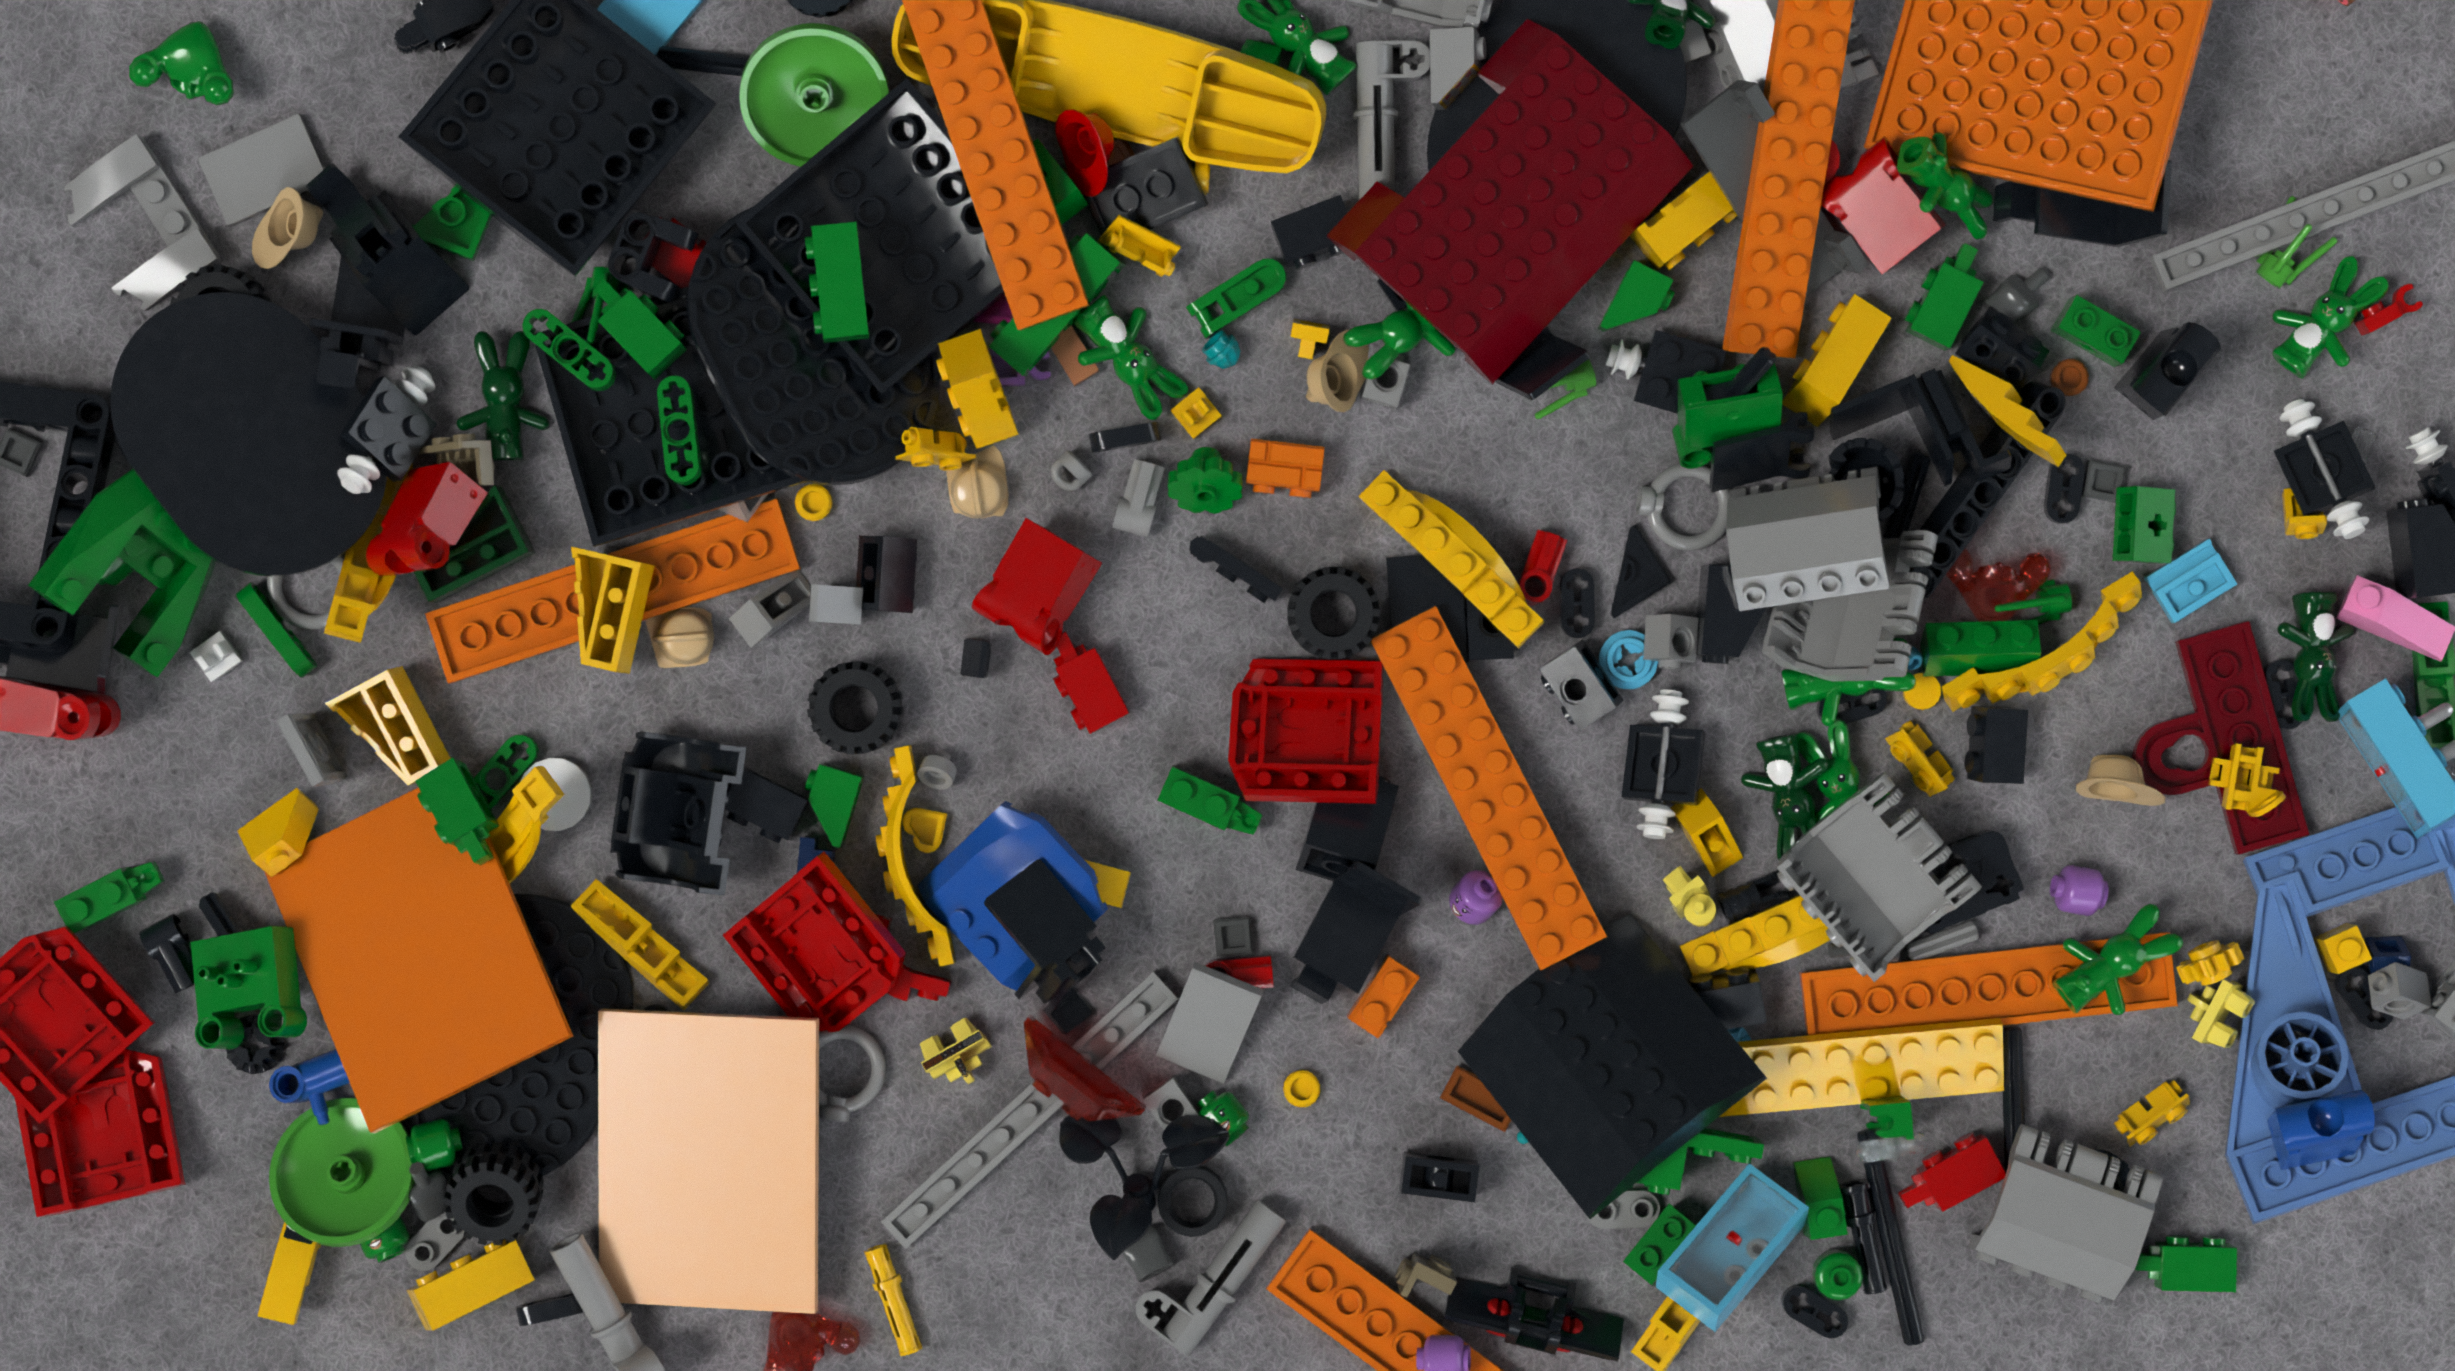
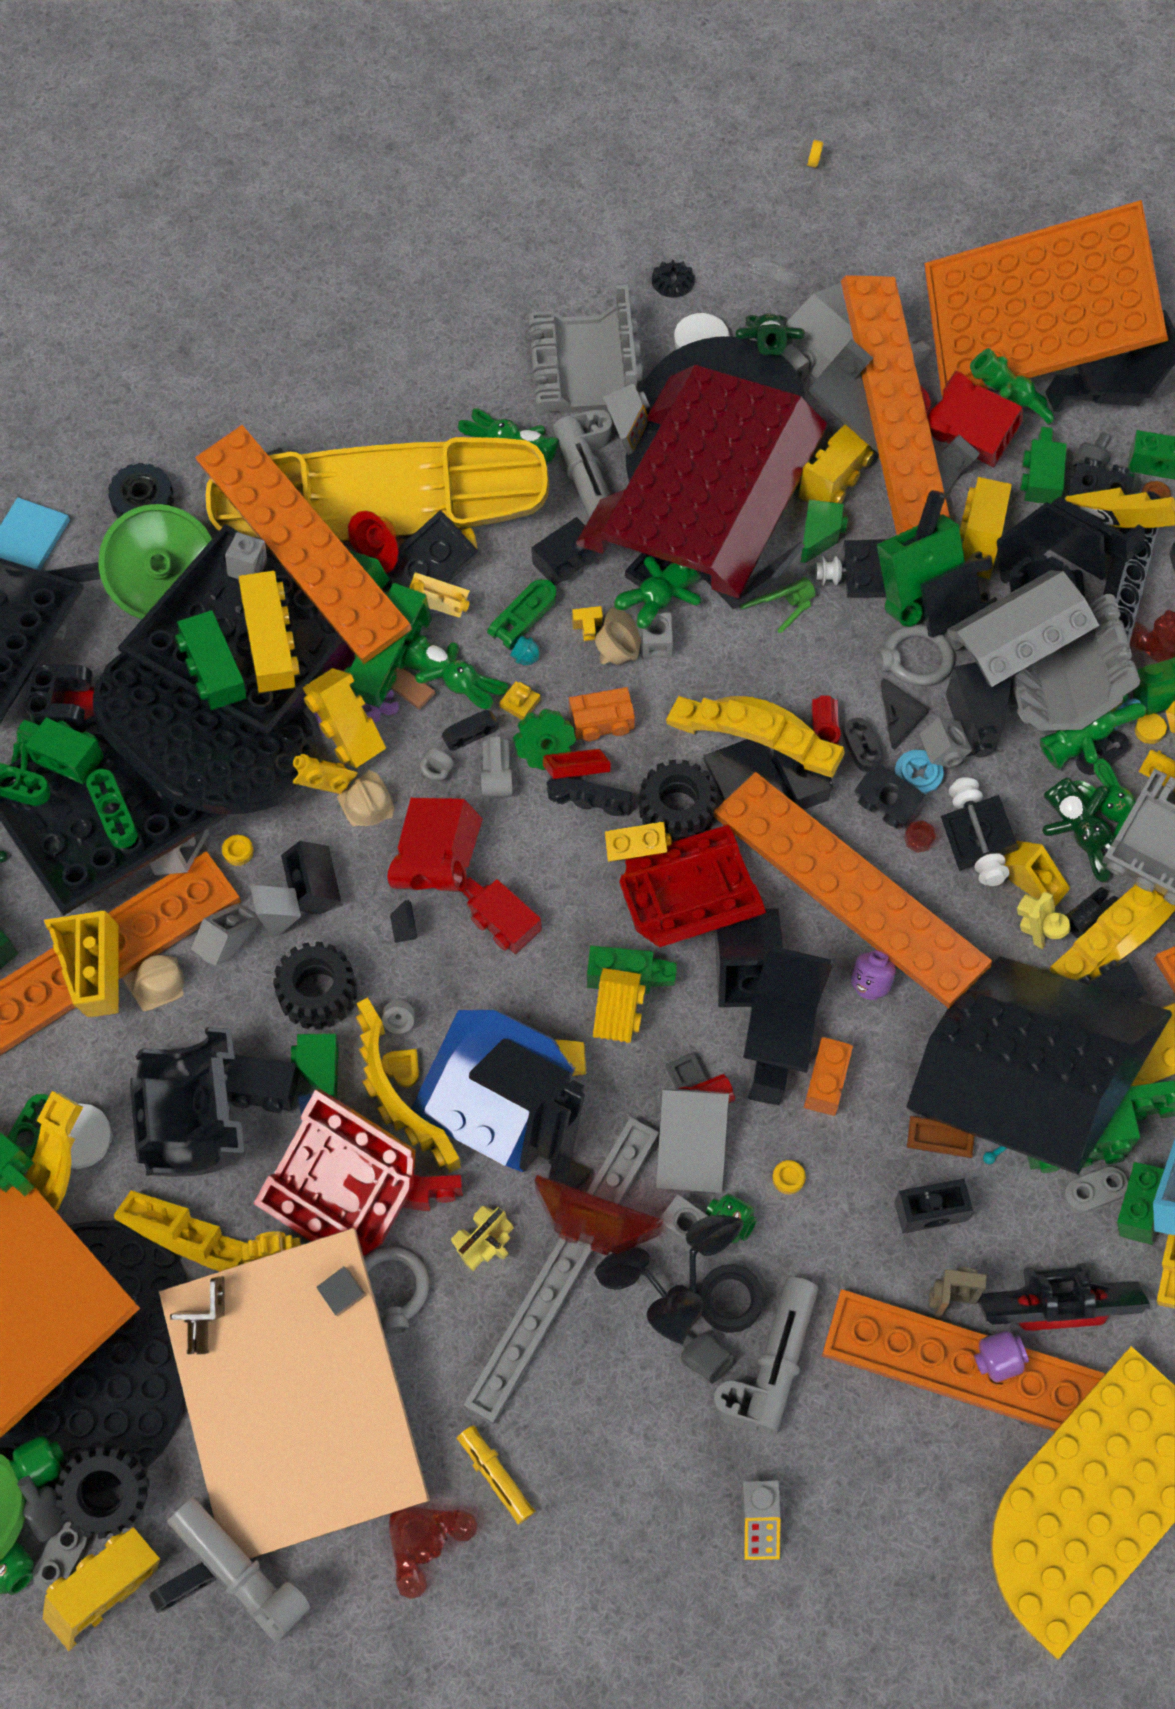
camera: 20 degrees left, 25 degrees down
(634, 1059) = (198, 1320): none -> dark brown bracket
(727, 998) = (267, 1244): none -> yellow gear
(784, 1082) = (340, 1291): none -> dark grey tile
(915, 260) = (267, 631): none -> yellow brick
(917, 149) = (245, 556): none -> light grey brick
(1180, 845) = (617, 1005): none -> yellow brick
(1233, 525) = (576, 763): none -> red tile
(1268, 652) = (637, 841): none -> yellow hinge
(1596, 741) = (919, 836): none -> clear red tile

